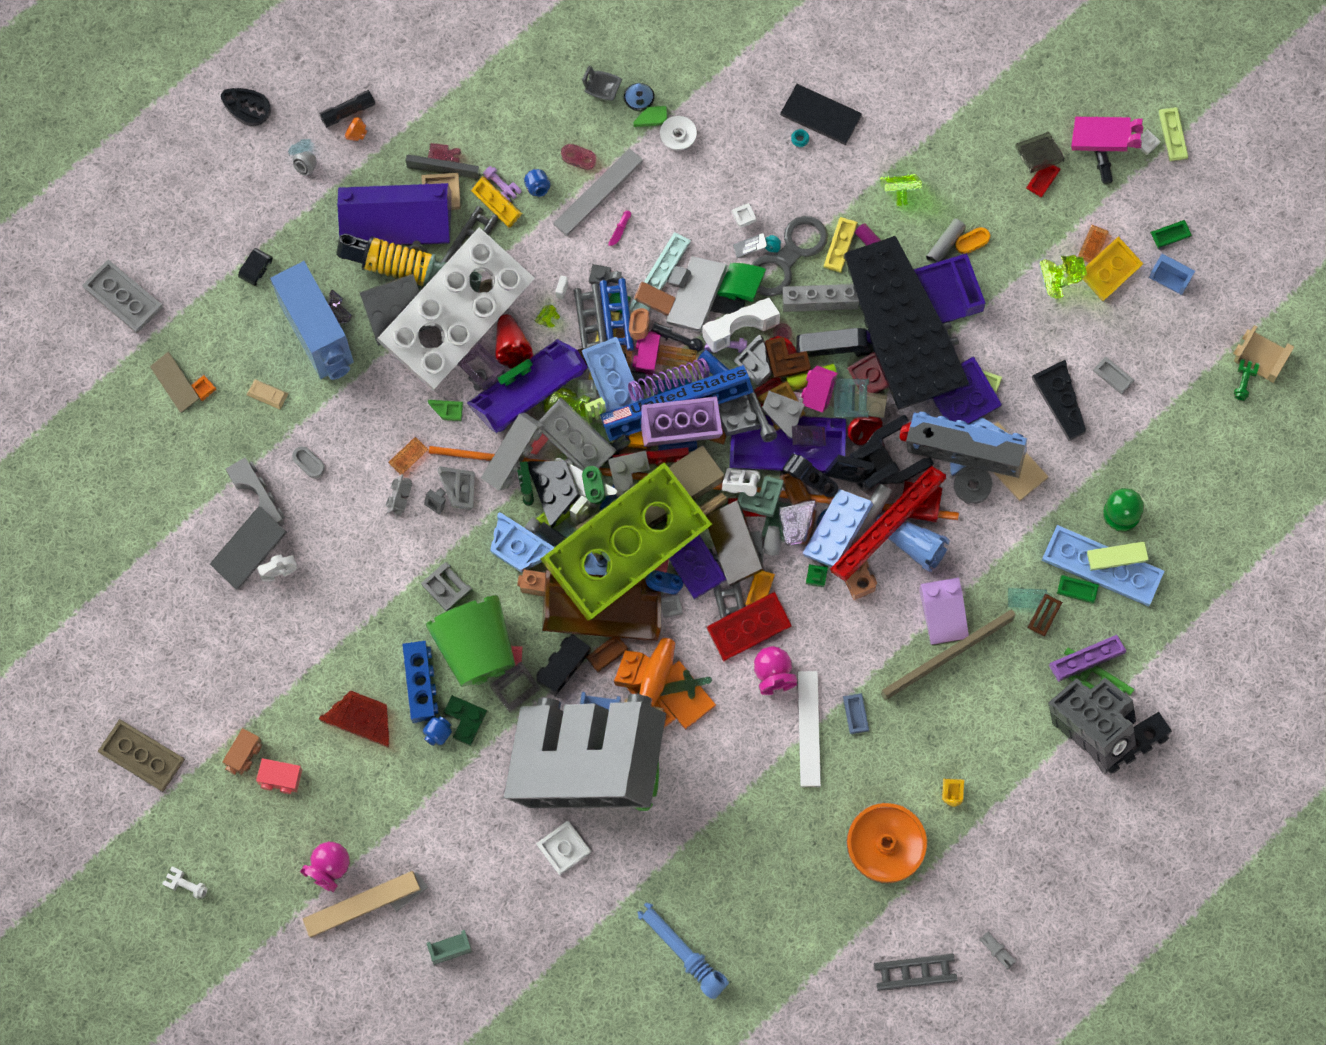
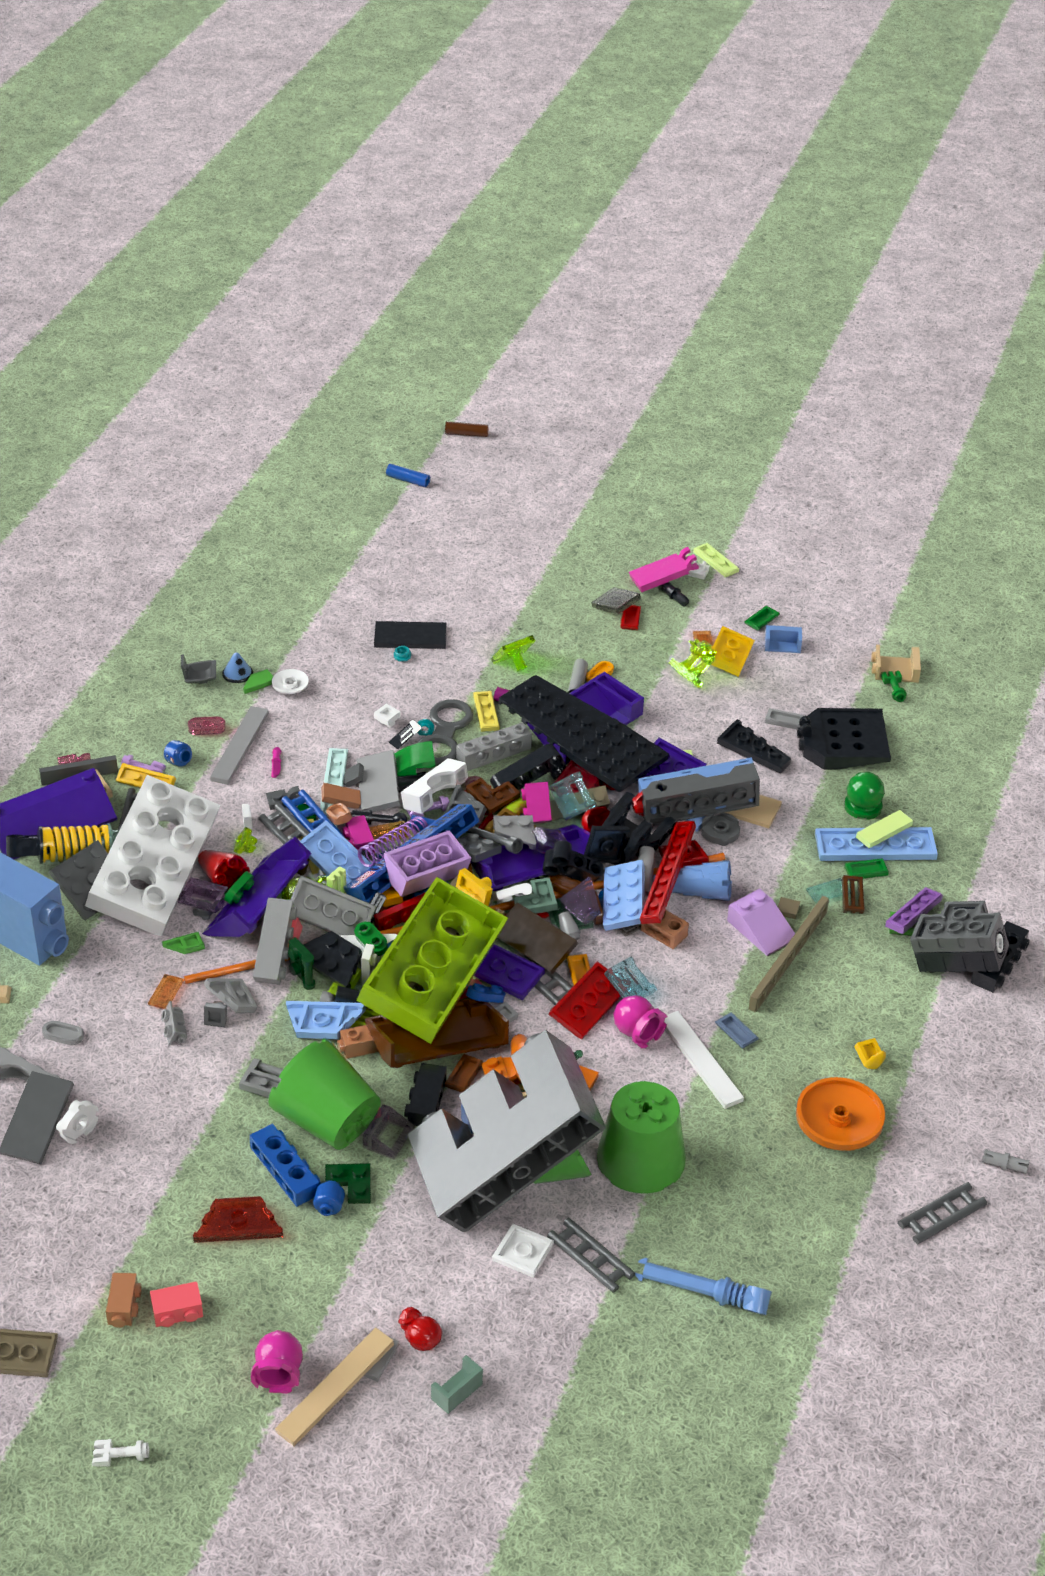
camera: 30 degrees left, 30 degrees down
(449, 884) = (420, 1331): none -> red hair
(624, 466) = (392, 917): light grey plate -> none
(624, 884) = (592, 1267): none -> dark grey bar
(705, 815) = (642, 1139): none -> bright green cone
(706, 472) = (473, 886): none -> yellow tile
(786, 624) = (626, 983): none -> clear light blue plate
(816, 575) = (626, 941): green tile -> none
(979, 601) = (789, 907): none -> dark tan tile
(1130, 408) = (843, 737): none -> black hinge

